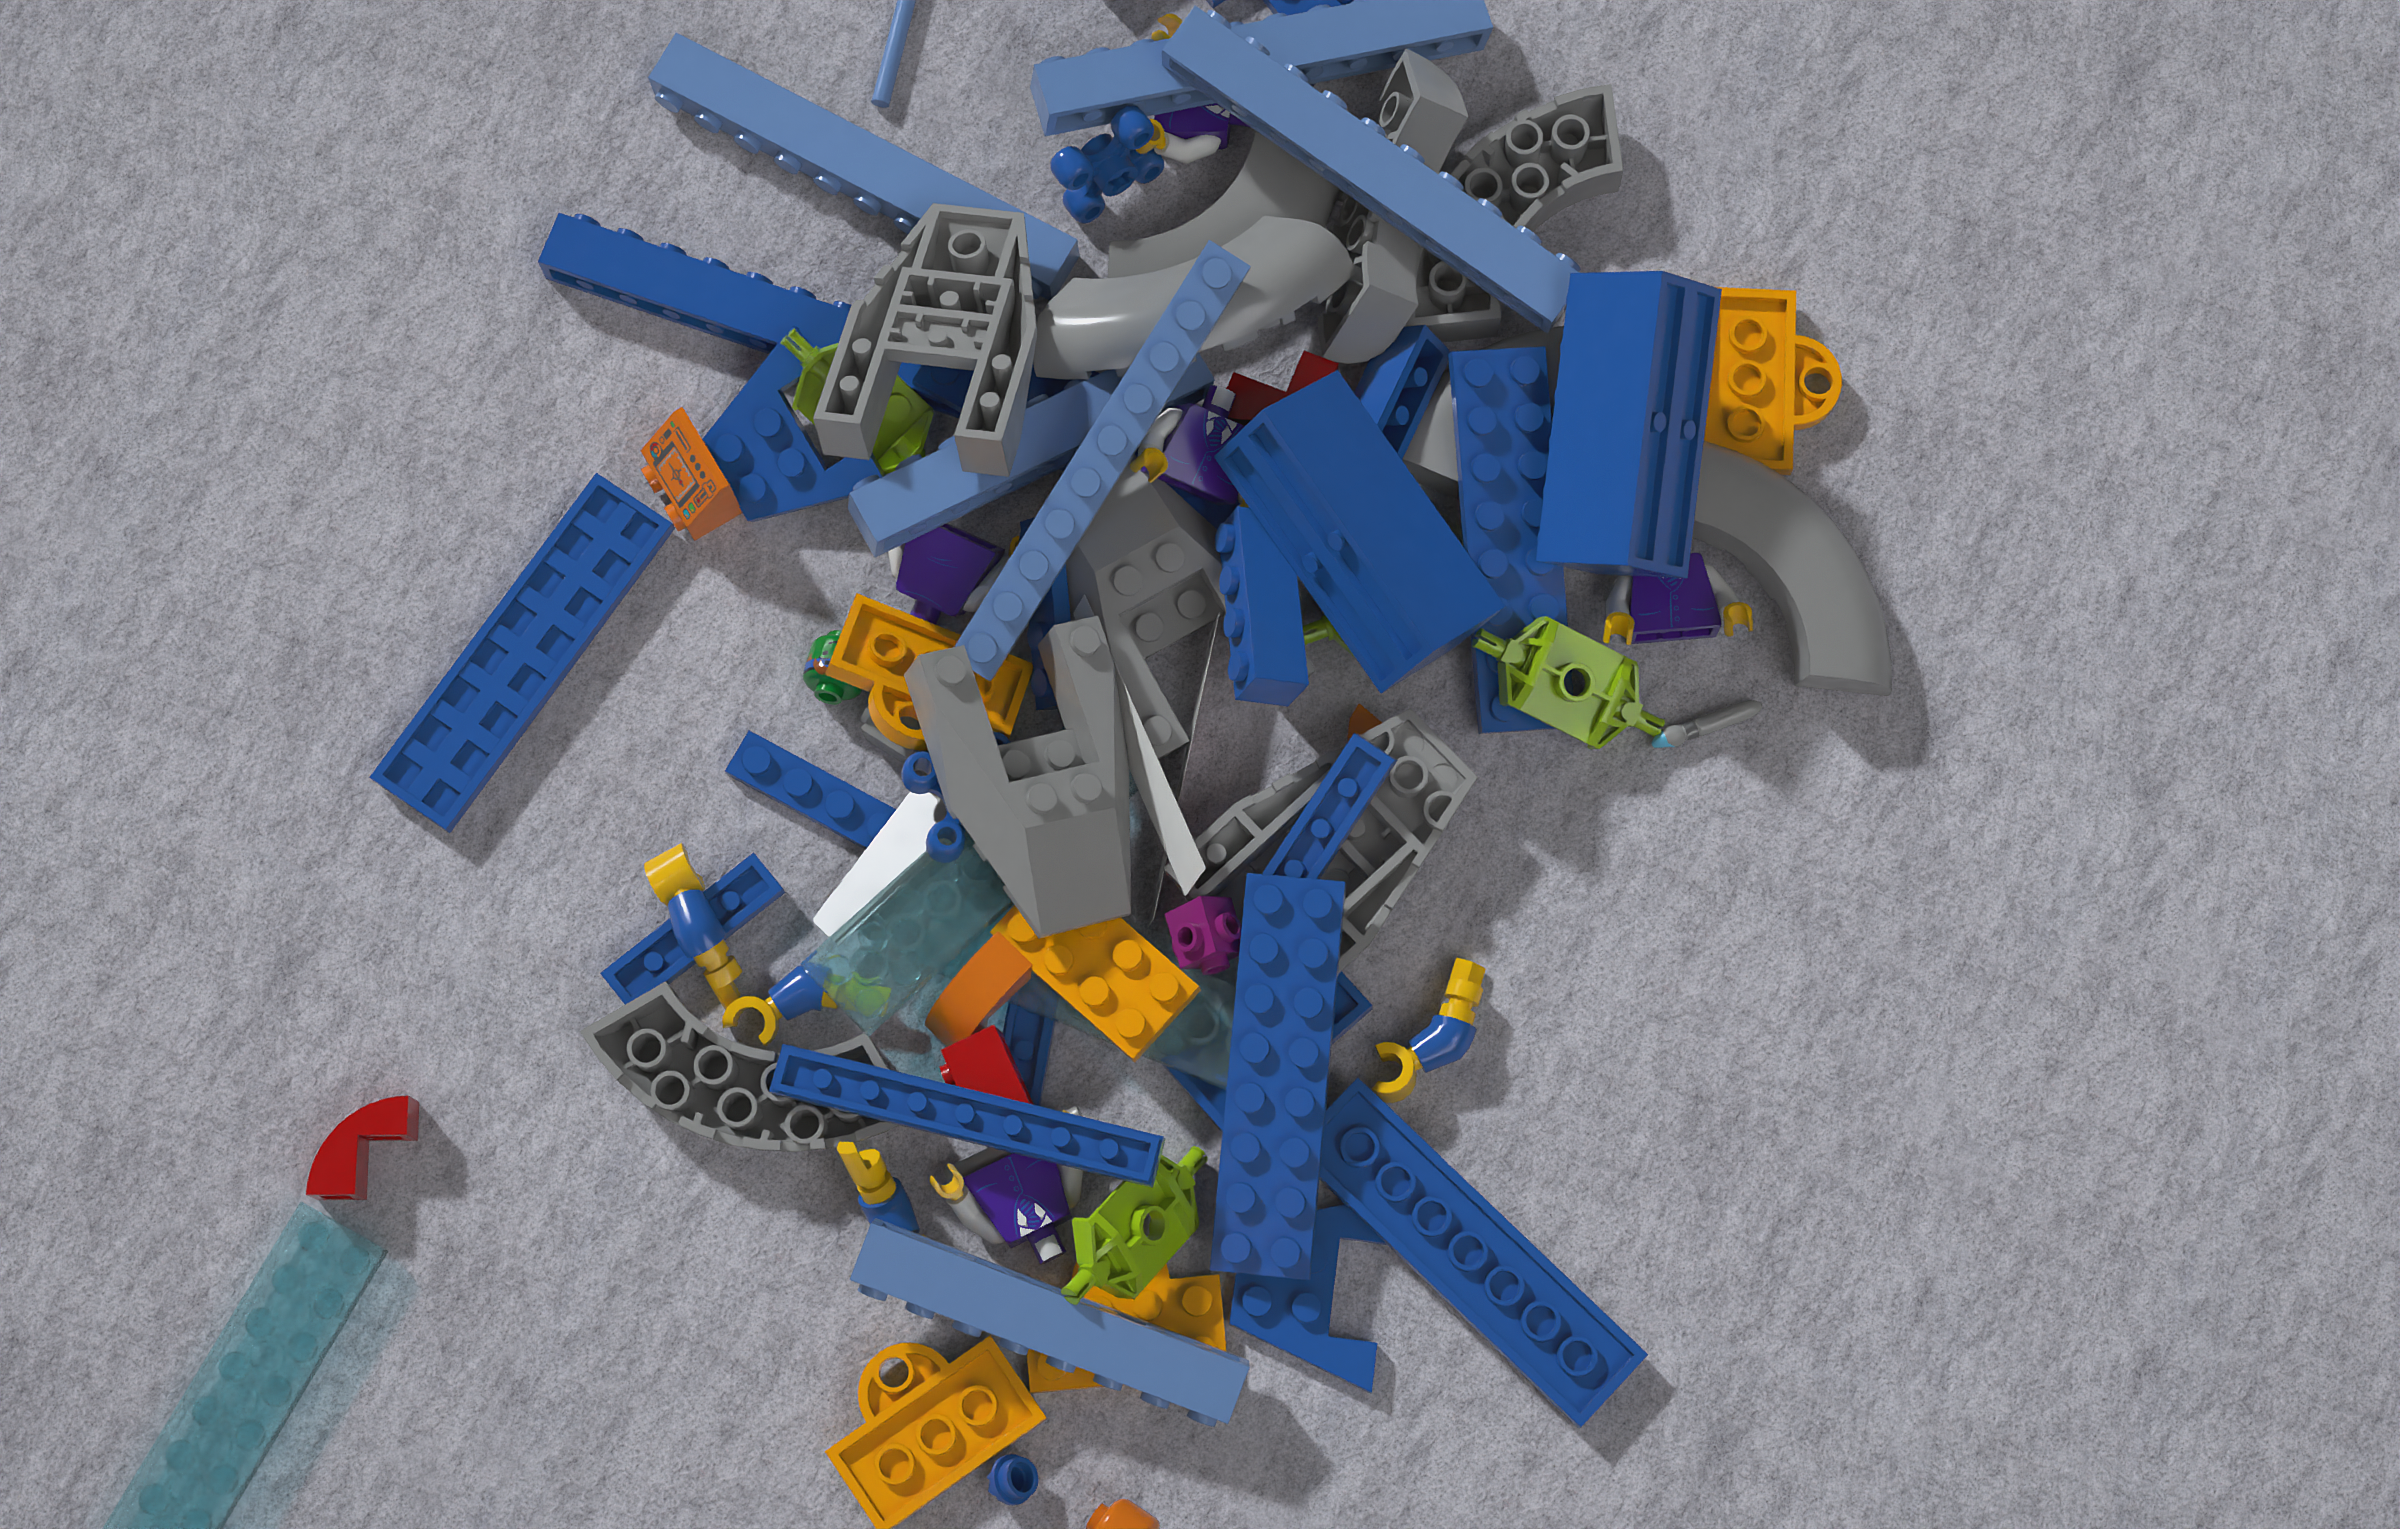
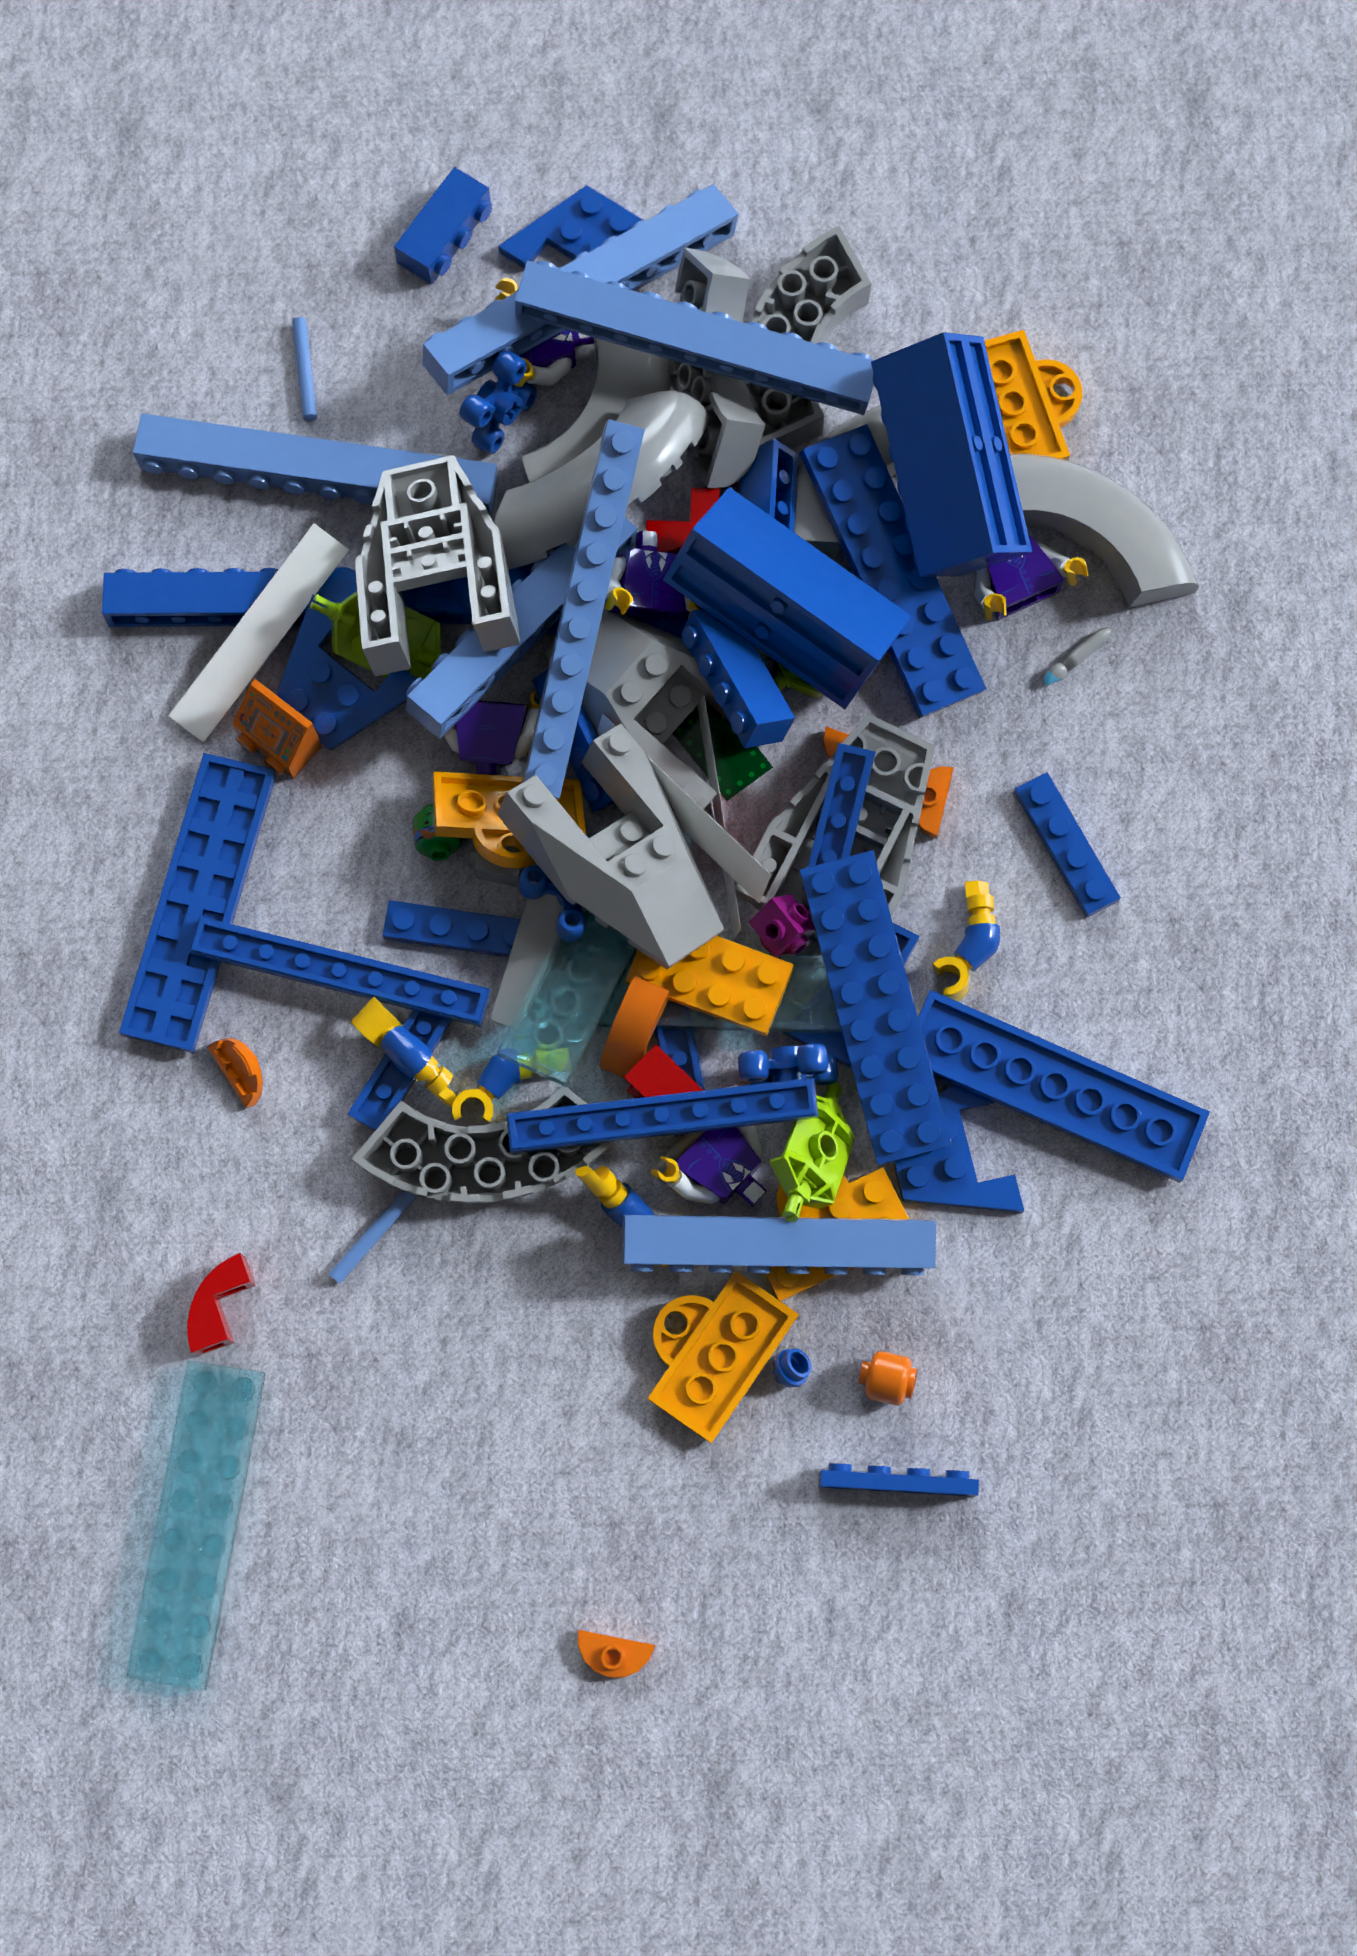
camera: 25 degrees left, 0 degrees up
(495, 870) = (240, 1068): none -> orange plate
(573, 1132) = (372, 1235): none -> medium blue bar
(656, 797) = (340, 971): none -> blue tile
(715, 348) = (258, 632): none -> white sticker
(1145, 1109) = (788, 1064): none -> blue gear
(1220, 717) = (734, 764): none -> dark green sticker
(1458, 841) = (935, 800): none -> orange plate
(1533, 677) = (947, 662): lime plate -> none
(1602, 956) = (1066, 844): none -> blue plate

